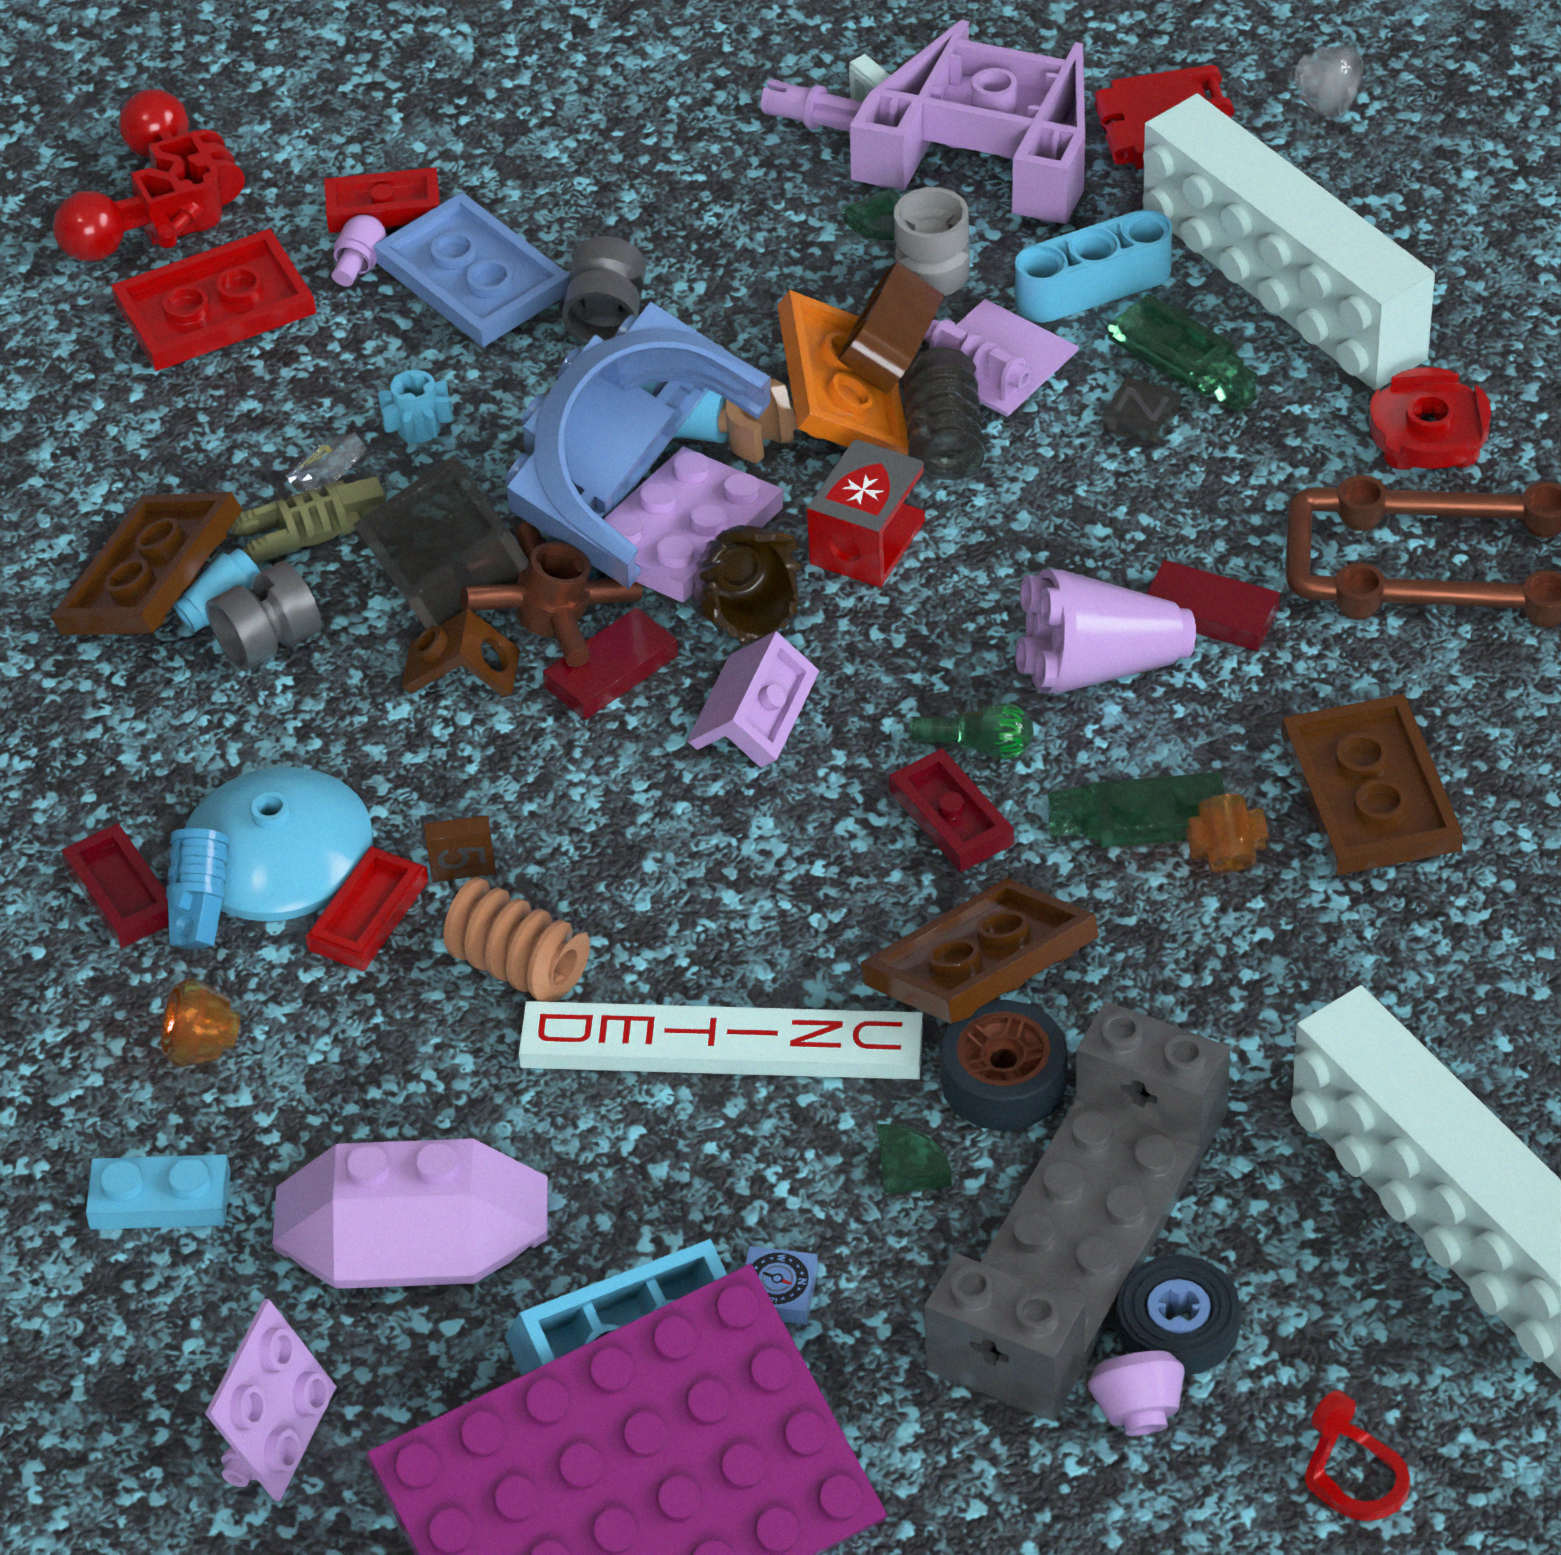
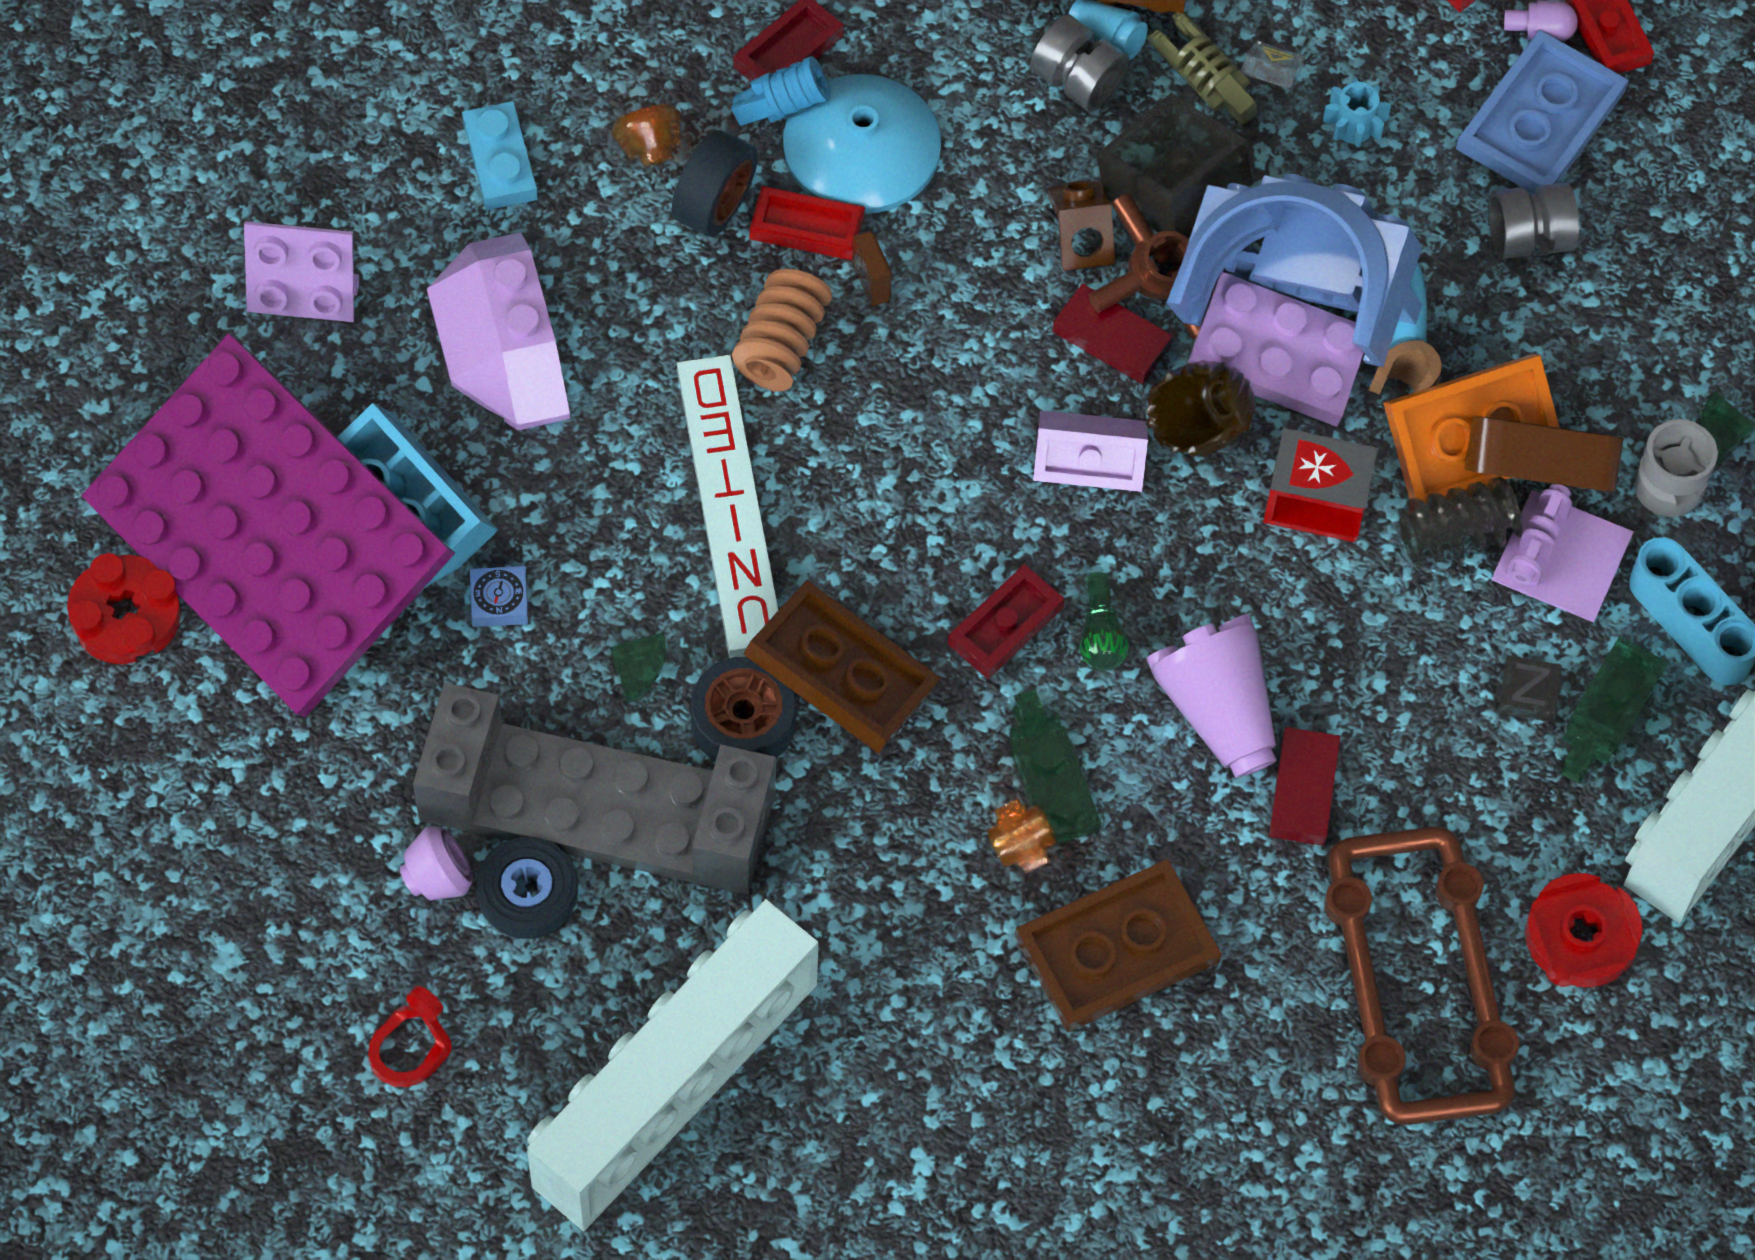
camera: 70 degrees right, 15 degrees up
(300, 962) = (714, 183): none -> black wheel

